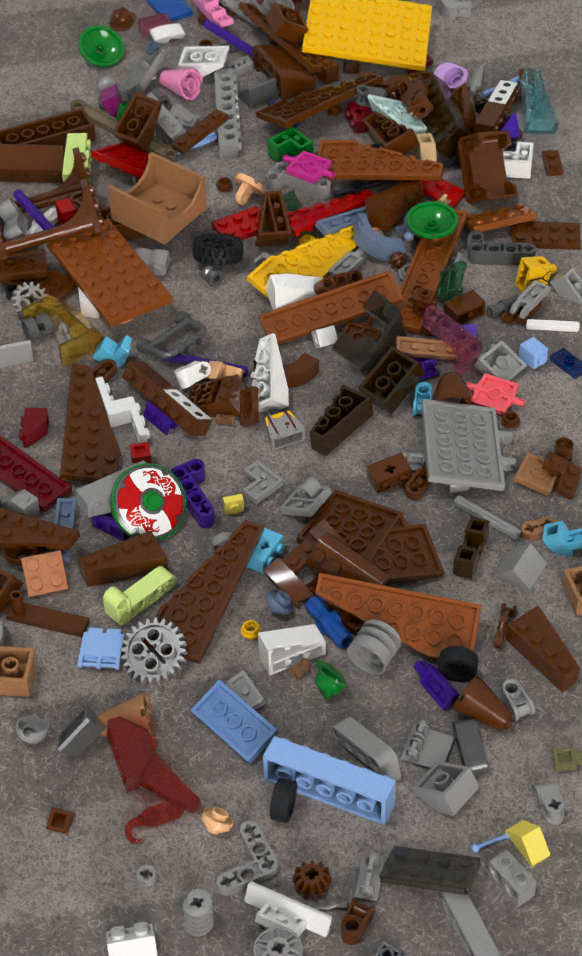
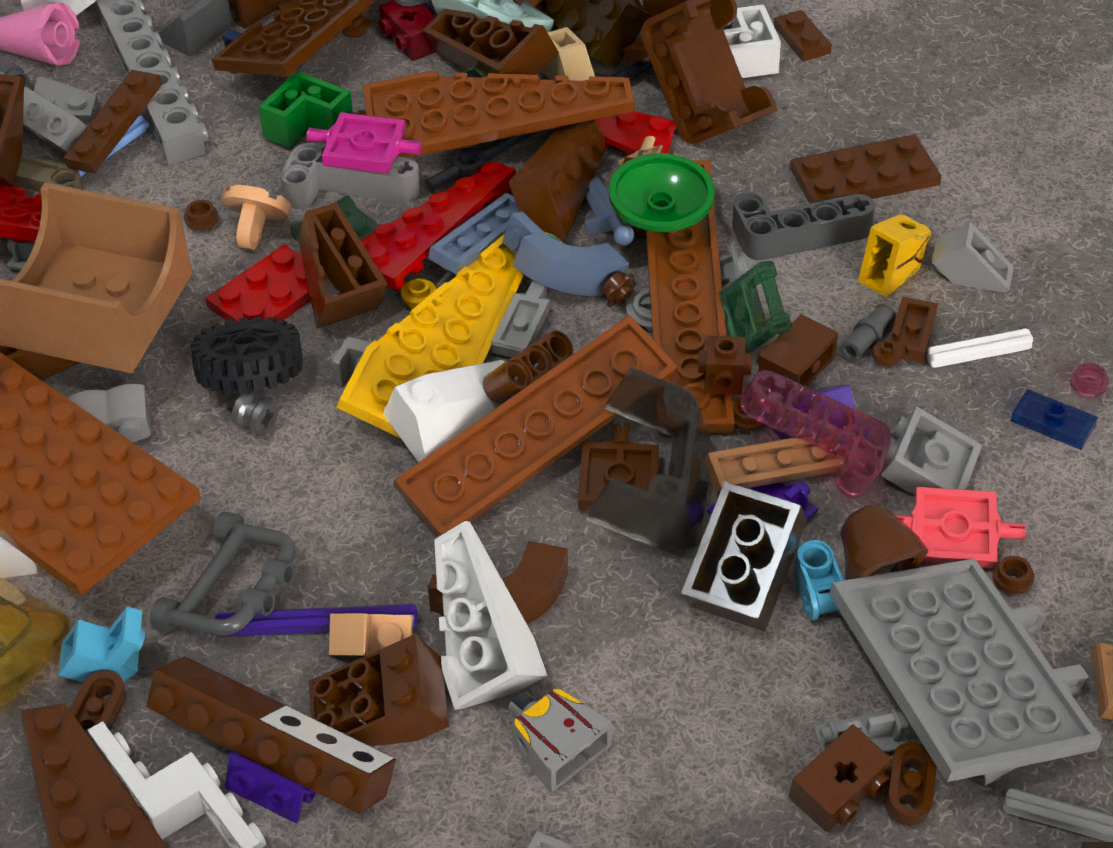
camera: 20 degrees left, 0 degrees up
(192, 373) = (302, 655): white piece -> none
(230, 420) = (403, 755): medium nougat piece -> none
(249, 406) = (464, 702): reddish brown plate -> none
(324, 336) = (547, 491): white bracket -> none
(340, 419) = (677, 673): dark brown wedge -> none
(500, 218) = (771, 158): dark orange plate -> none
(530, 298) = (919, 303): light grey hinge -> none
(533, 353) = (985, 416): light blue brick -> none

